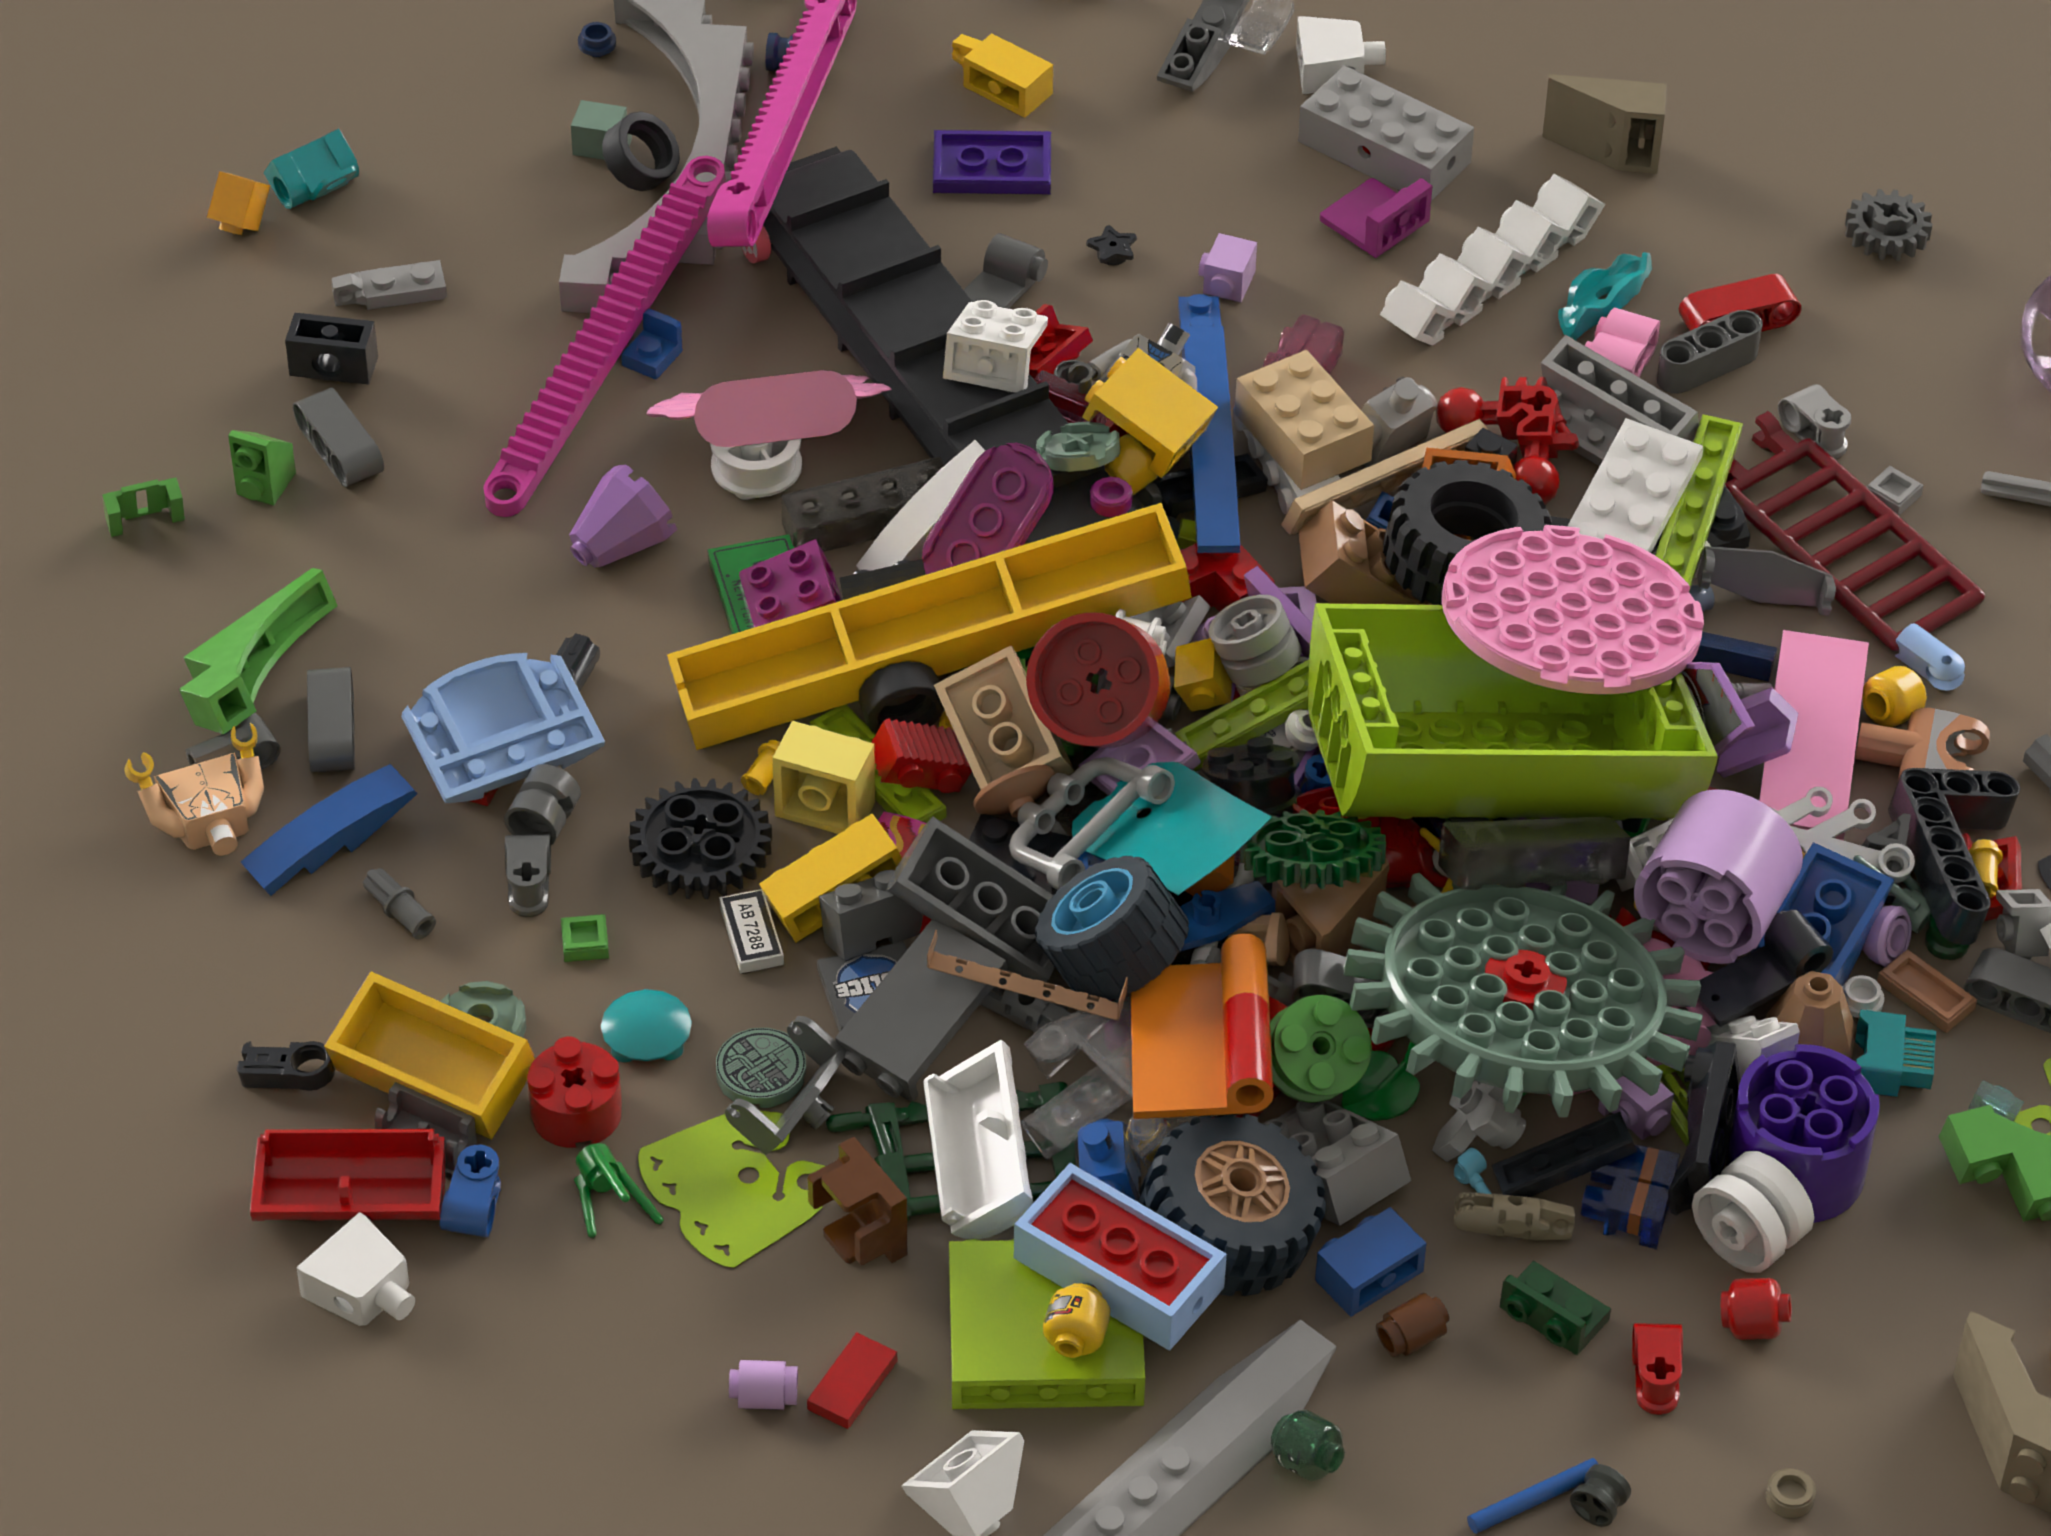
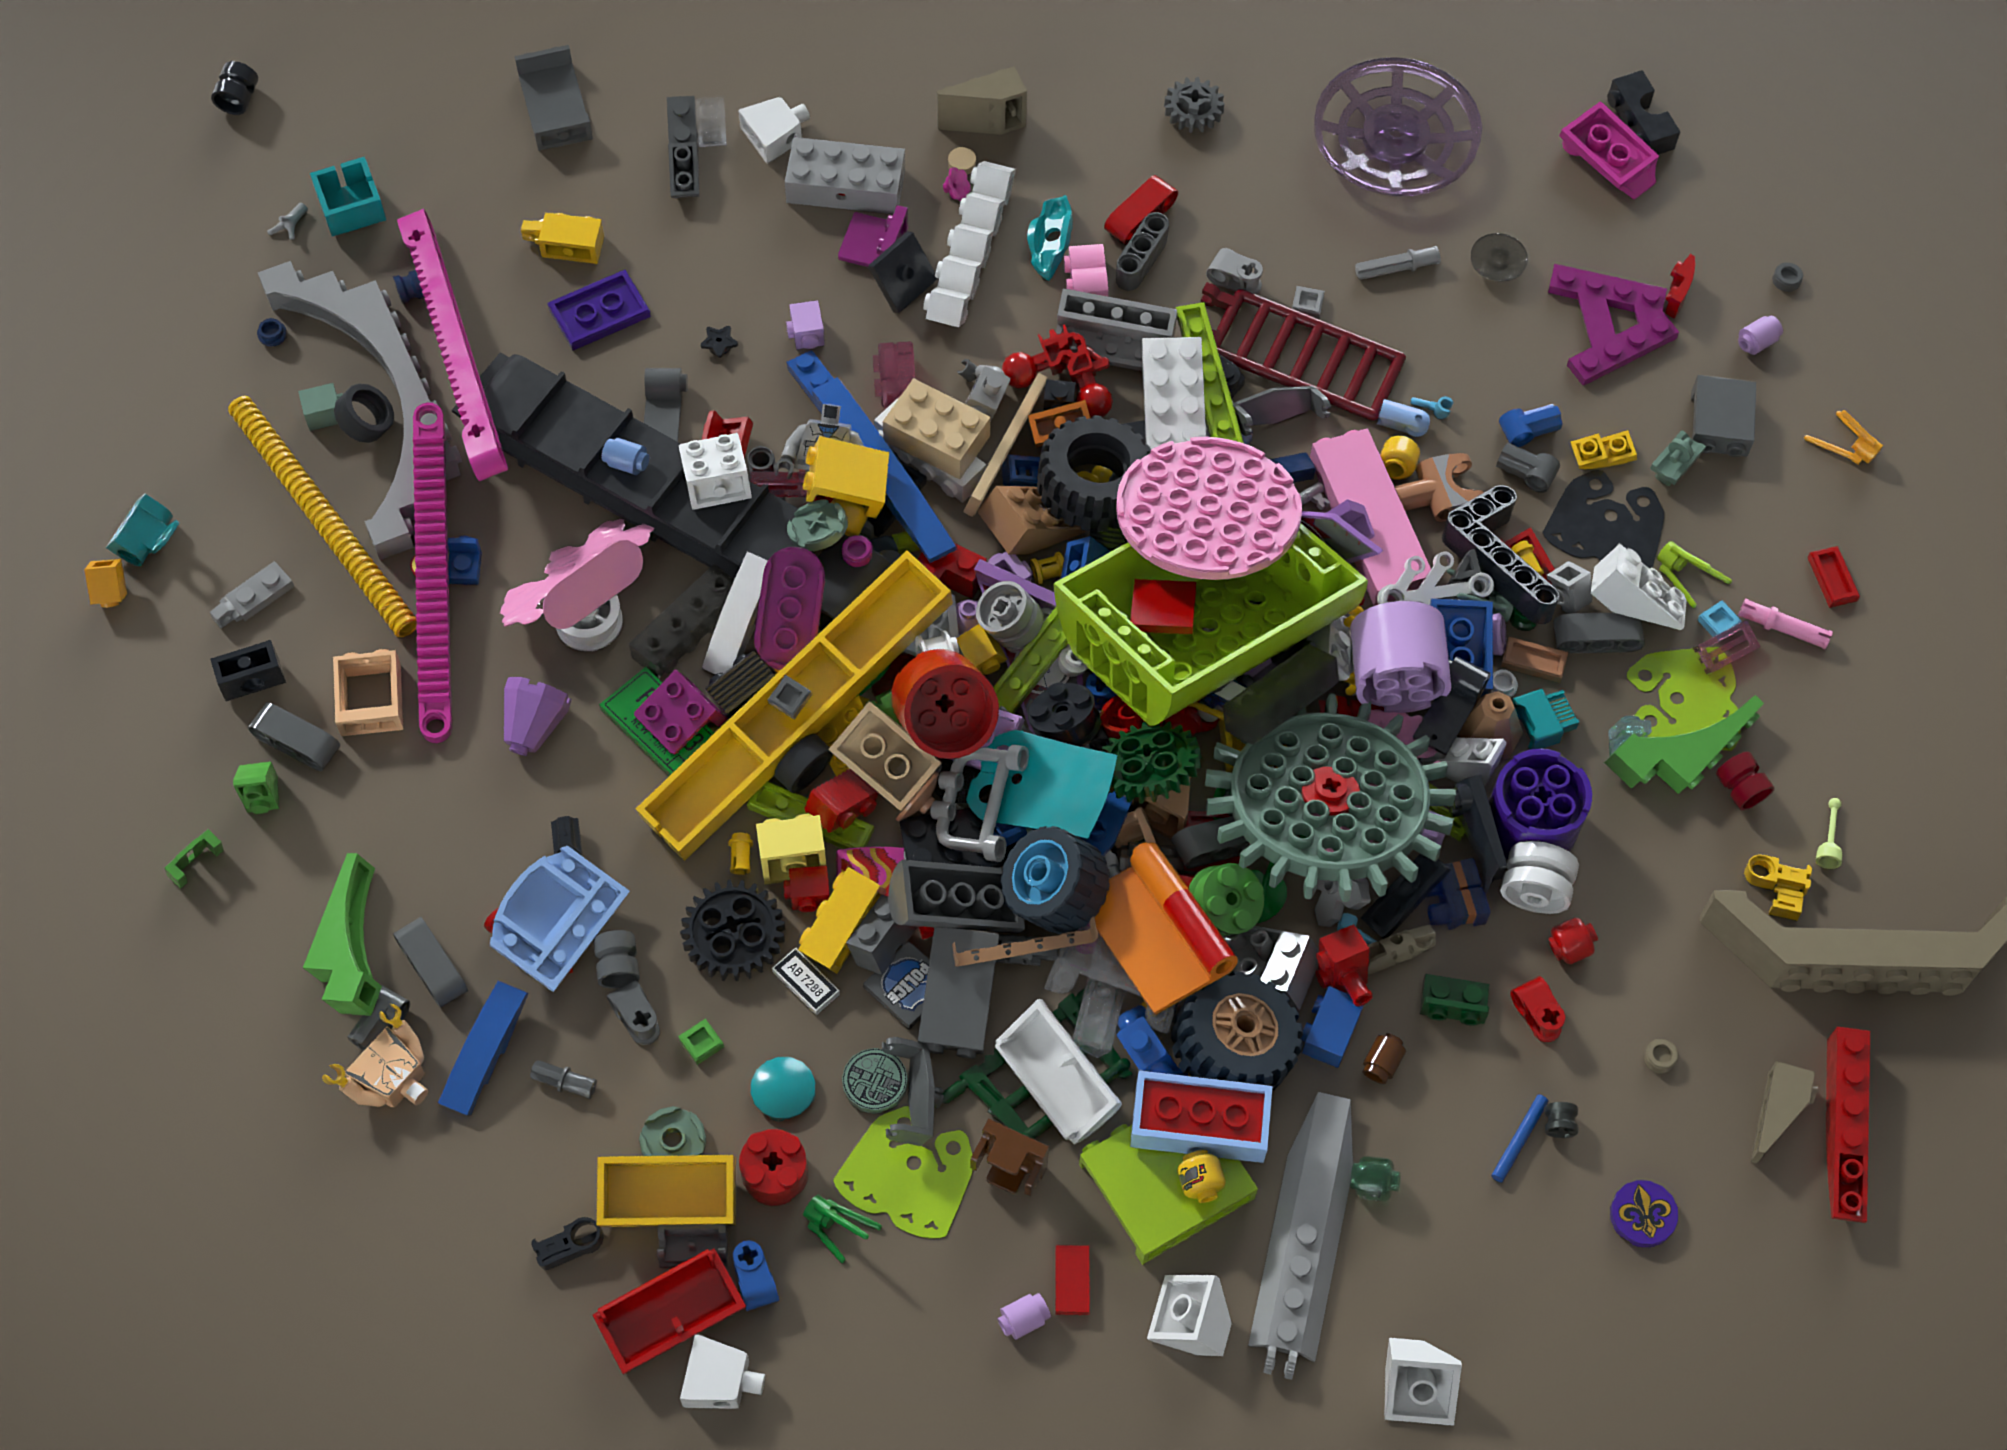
camera: 30 degrees left, 15 degrees up
(441, 456) = (374, 718): none -> light nougat window
(524, 236) = (323, 516): none -> yellow piece
(815, 825) = (807, 887): none -> red brick
(900, 290) = (625, 456): none -> medium blue brick
(920, 604) = (789, 697): none -> dark grey tile
(1382, 252) = (902, 272): none -> black plate
(1426, 1188) = (1344, 964): none -> red brick
(1446, 697) = (1163, 606): none -> red tile
(1520, 188) = (957, 184): none -> dark pink plant
(1542, 171) = (963, 159): none -> tan tile
(1992, 668) = (1437, 407): none -> medium azure hand

